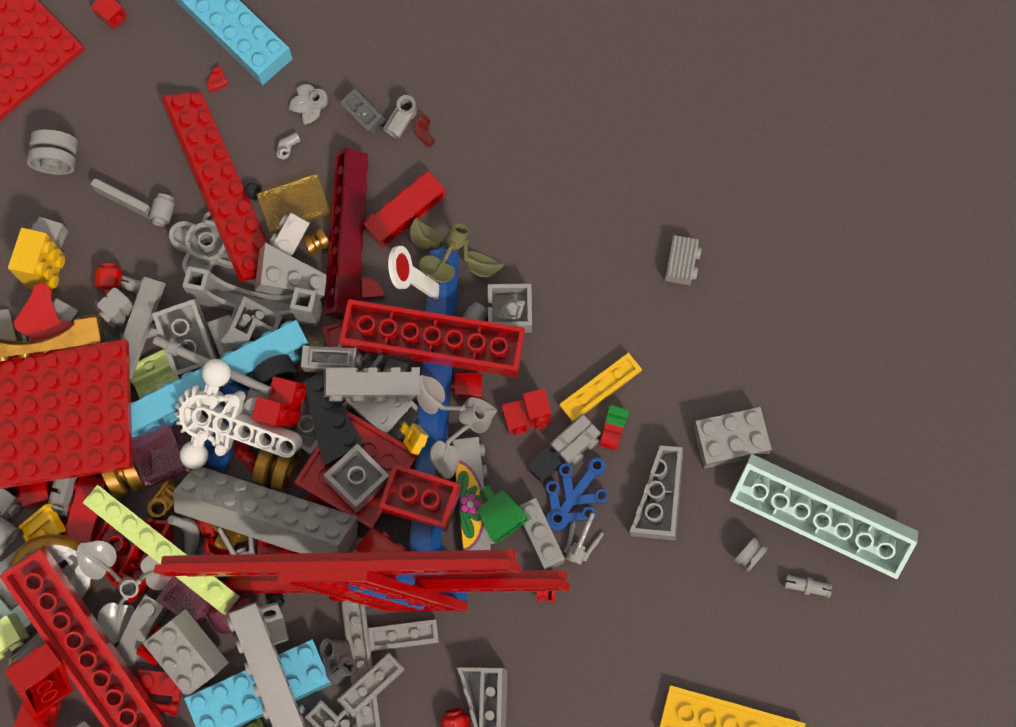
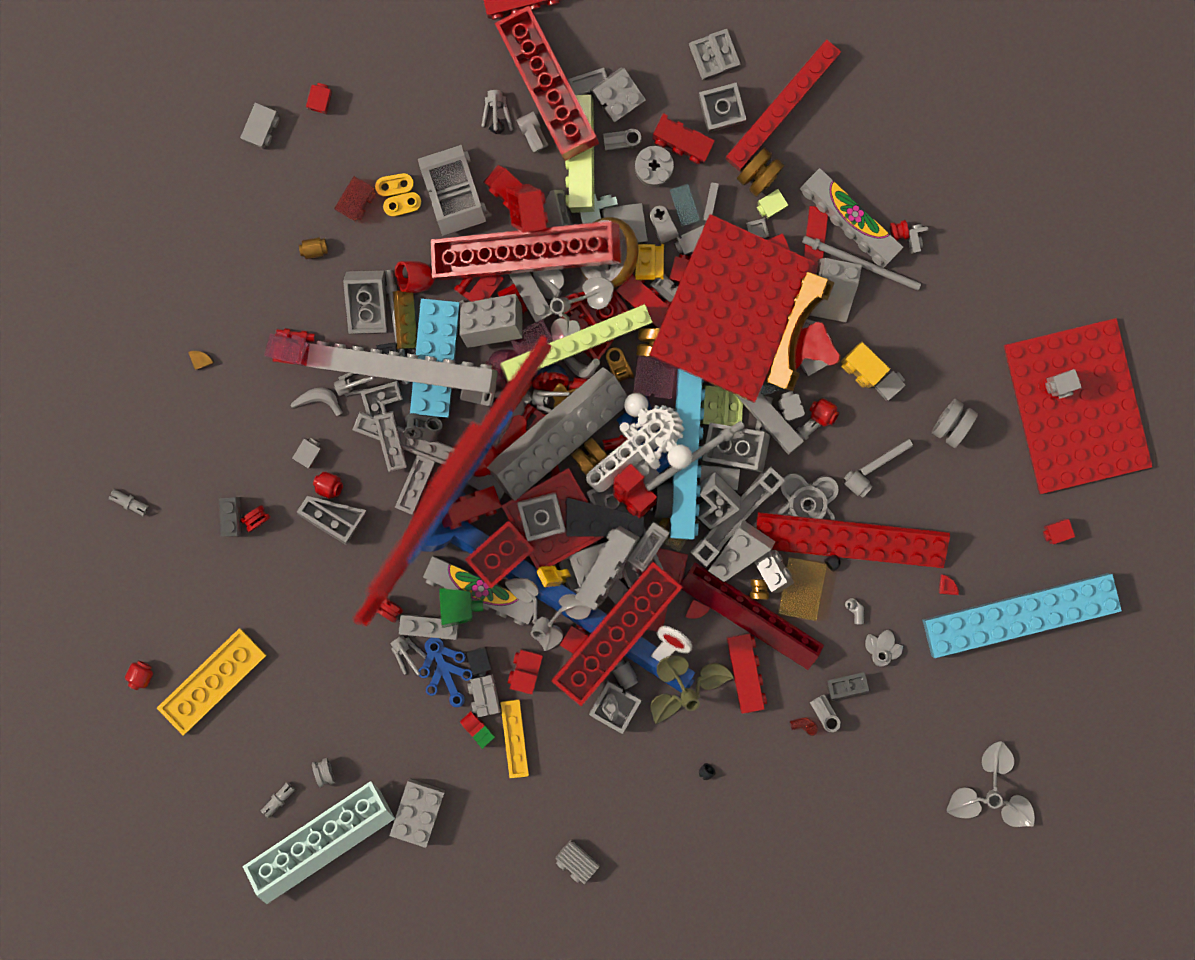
camera: 115 degrees right, 15 degrees up
(522, 192) = (707, 771): none -> black hinge
(660, 502) = (401, 730): light grey wedge -> none

